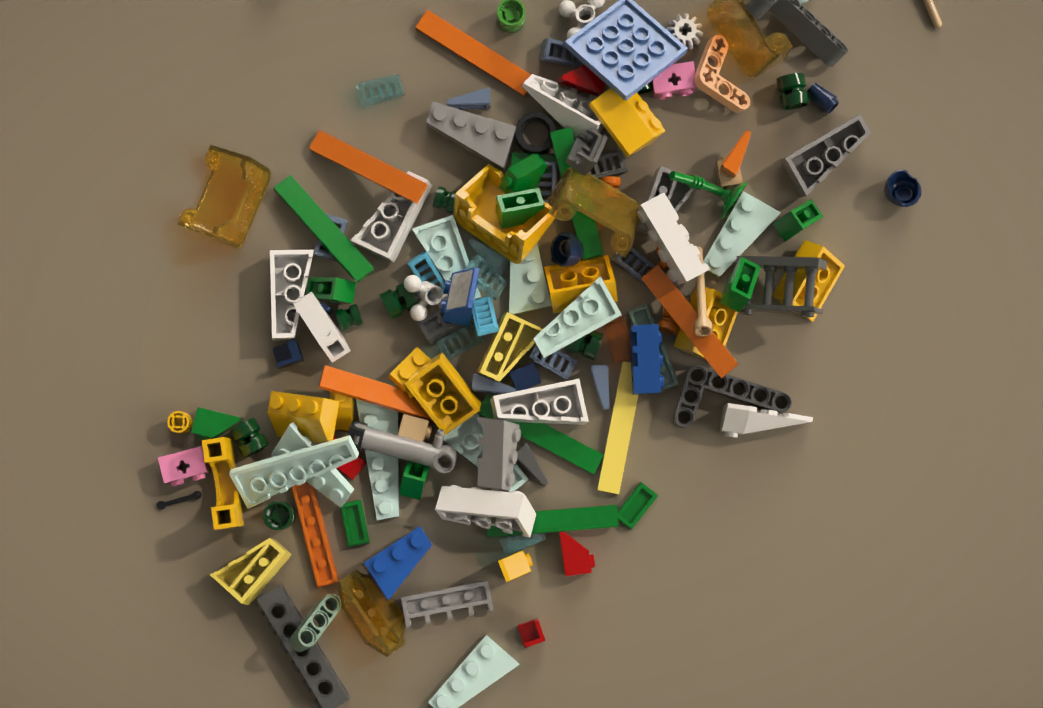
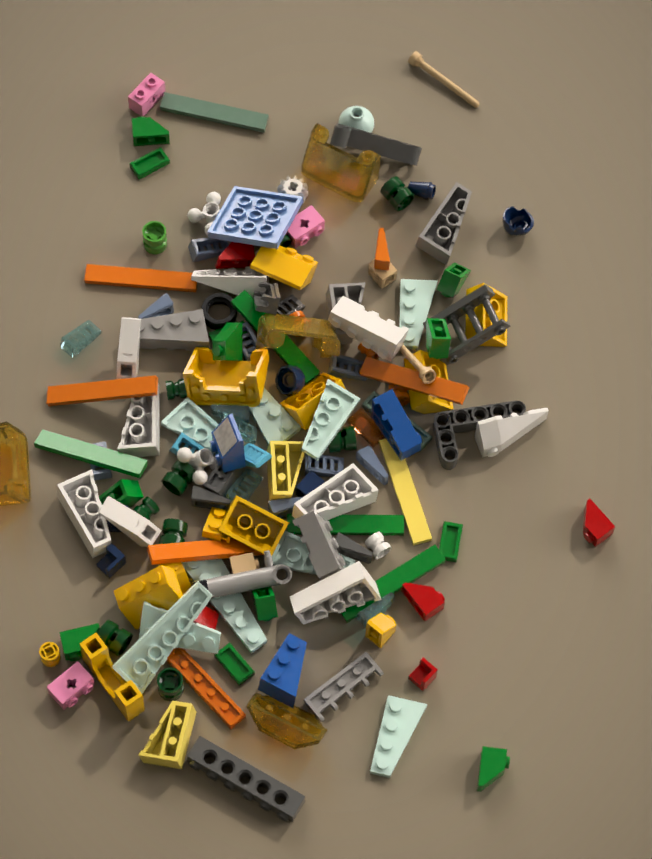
camera: 30 degrees left, 20 degrees down
(162, 505) = (67, 728): black hinge -> none
(322, 616) = (245, 748): sand green beam -> none
(361, 359) = (174, 531): none -> dark green wheel
(414, 336) = (206, 499): none -> dark grey slope
(416, 135) = (128, 348): none -> white slope
(518, 207) = (236, 363): green slope -> none
(560, 474) = (377, 544): none -> white wheel
(714, 80) = (330, 212): light nougat beam -> none
(727, 196) = (365, 282): green dish -> none
(791, 566) = (596, 524): none -> red slope

